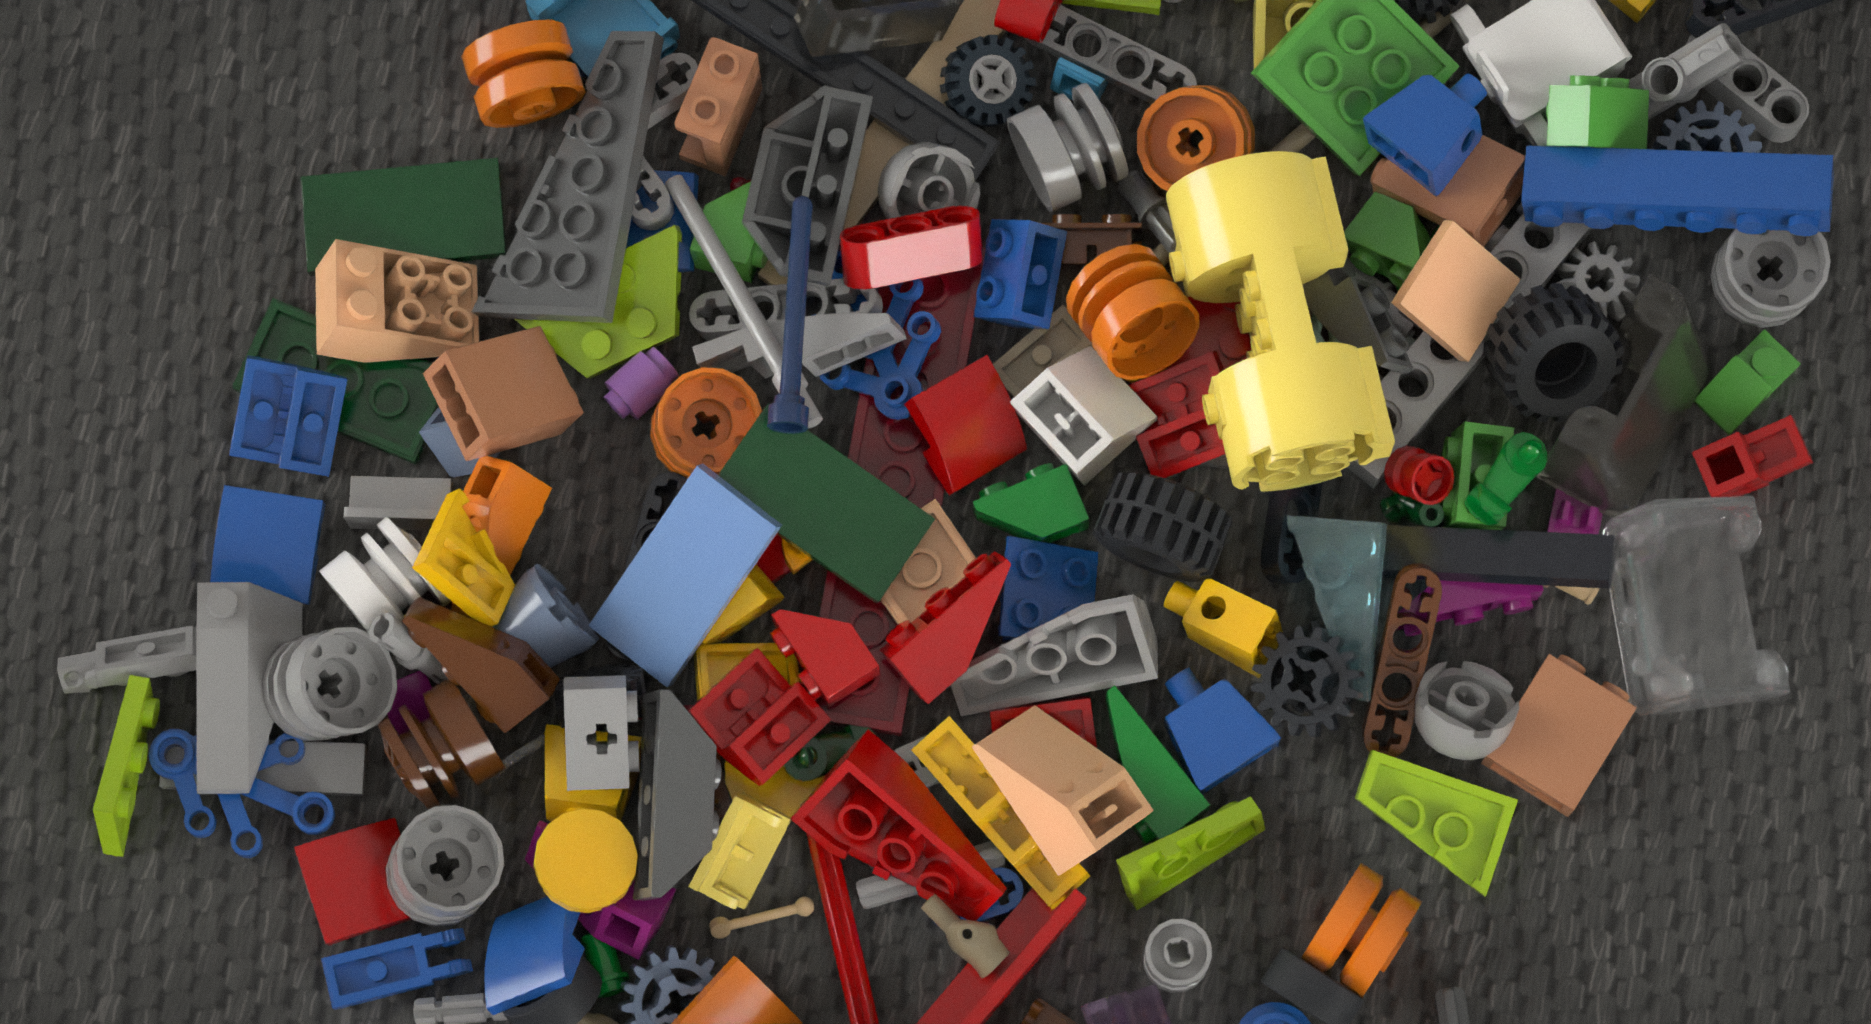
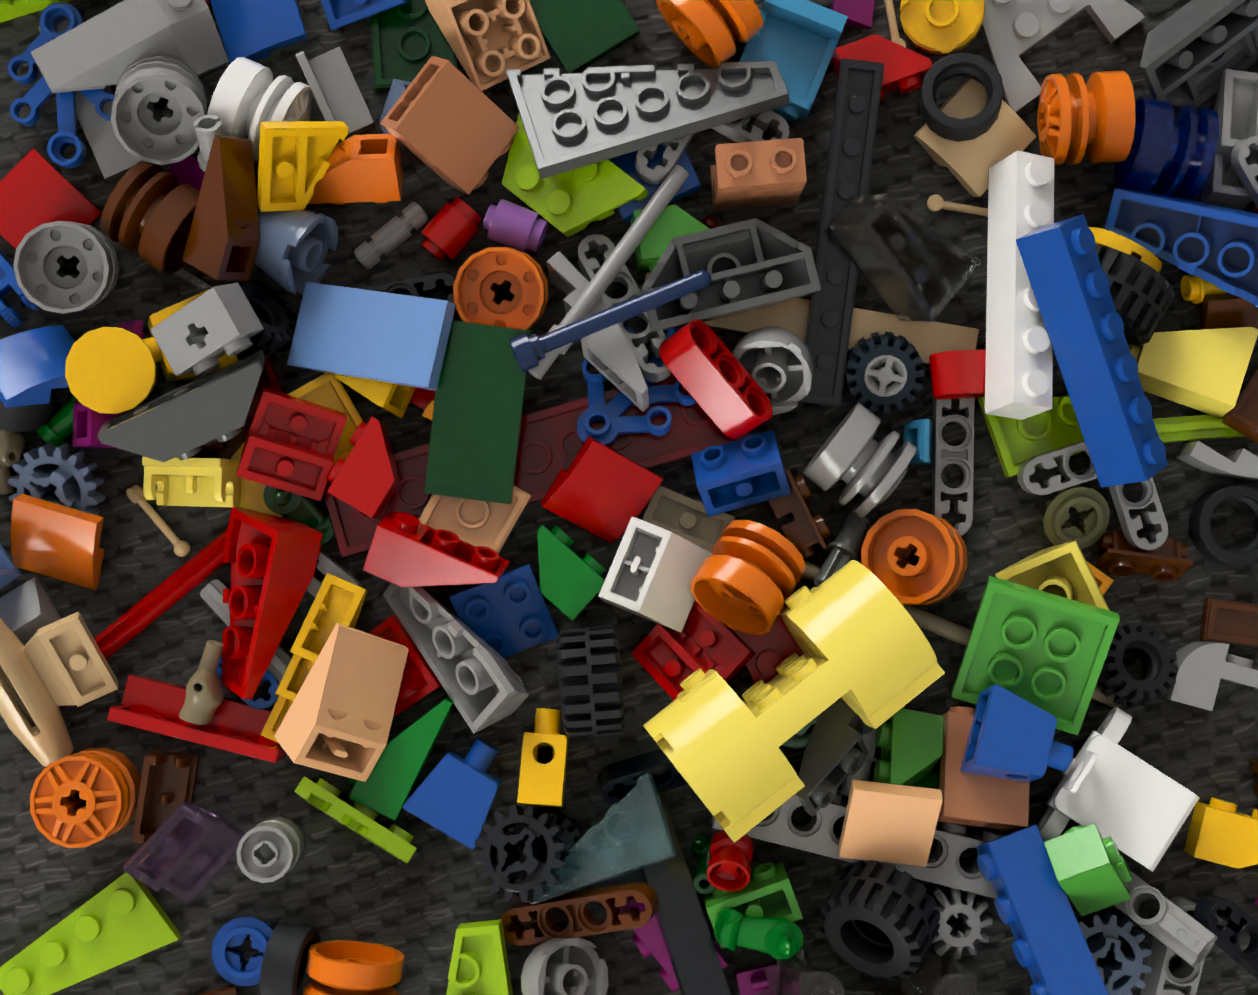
camera: 60 degrees right, 10 degrees up
(580, 520) = (391, 235): none -> light grey axle
(608, 452) = (450, 229): none -> red brick

